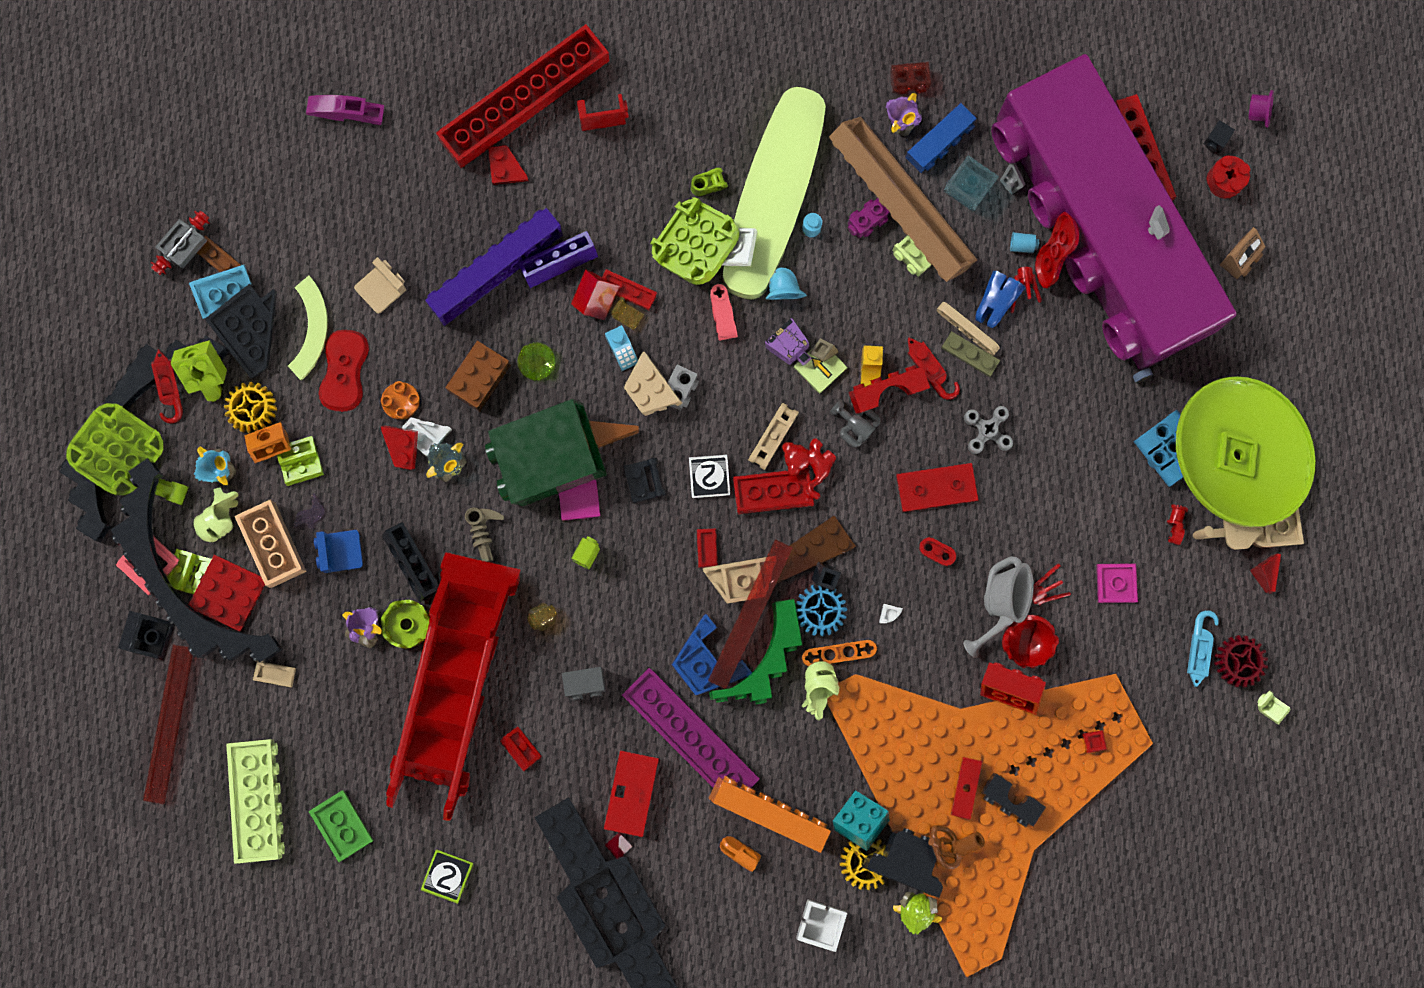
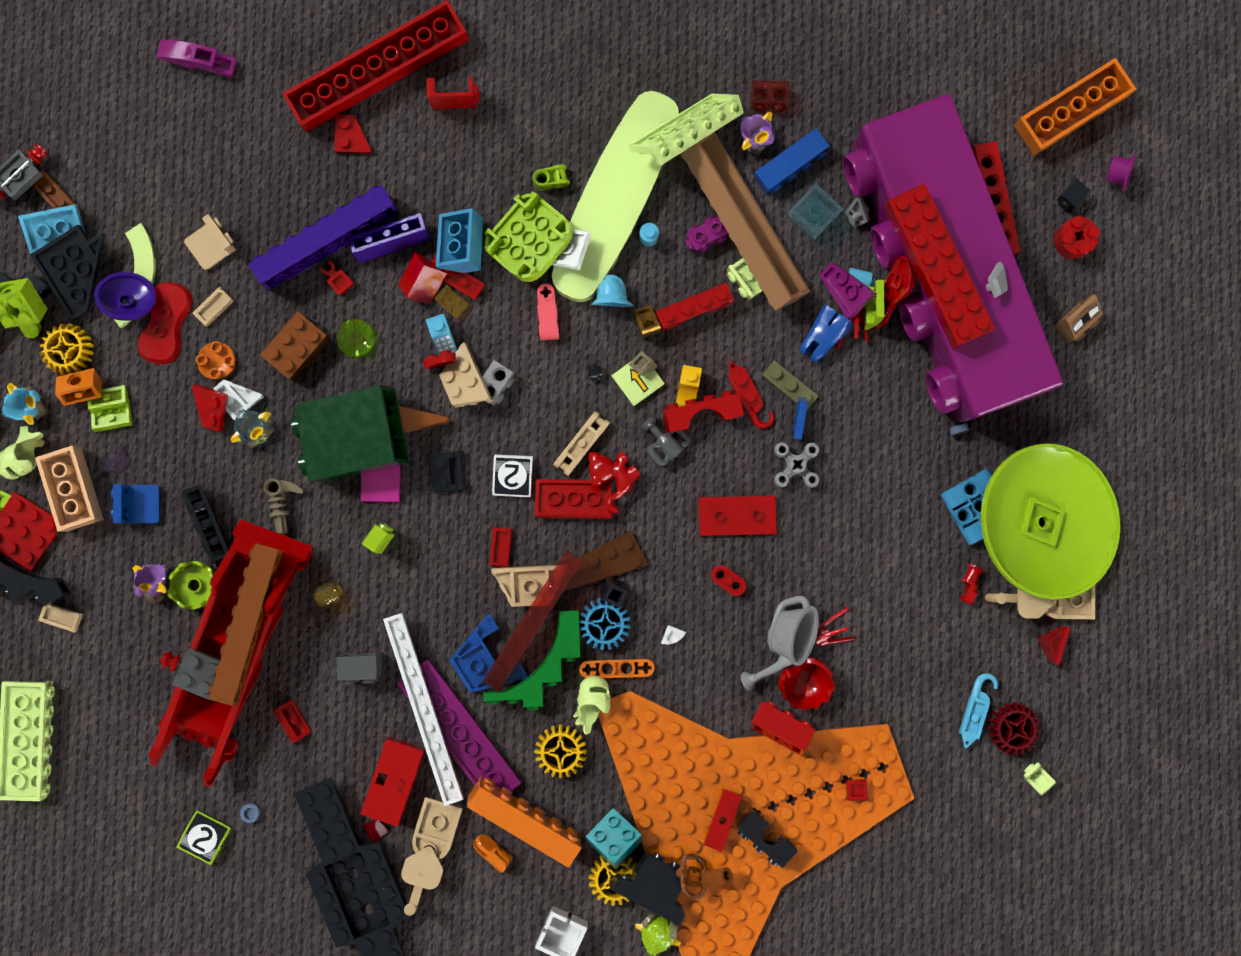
camera: 10 degrees right, 5 degrees up
(305, 347) = (125, 296): none -> dark purple dish
(341, 826) = (106, 775): bright green plate -> none
(390, 348) = (213, 306): none -> tan tile
(427, 706) = (194, 672): none -> dark grey plate
(468, 650) = (245, 625): none -> dark orange brick
(490, 845) = (250, 812): none -> sand blue tile
(511, 307) = (338, 280): none -> red plate
(617, 374) = (445, 358): none -> red plate
(628, 253) = (460, 241): none -> dark azure slope
(653, 716) = (423, 709): none -> white plate
(678, 836) = (435, 828): none -> tan plate
(777, 365) = (595, 372): none -> black plate
(789, 344) = (609, 353): medium lavender torso -> none
(811, 739) = (569, 751): none -> yellow gear
(821, 309) = (647, 321): none -> pearl gold slope
(838, 116) = (688, 127): none -> yellowish green bracket
(875, 283) = (694, 306): none -> red arch
(968, 328) = (791, 359): tan beam -> none
(985, 383) = (800, 418): none -> blue tile
(1013, 253) = (846, 289): none -> magenta wing
(1042, 264) = (875, 307): none -> lime slope
(1100, 216) = (938, 266): none -> red brick
(1117, 583) = (902, 634): dark pink tile -> none
(1207, 53) = (1074, 106): none -> orange brick

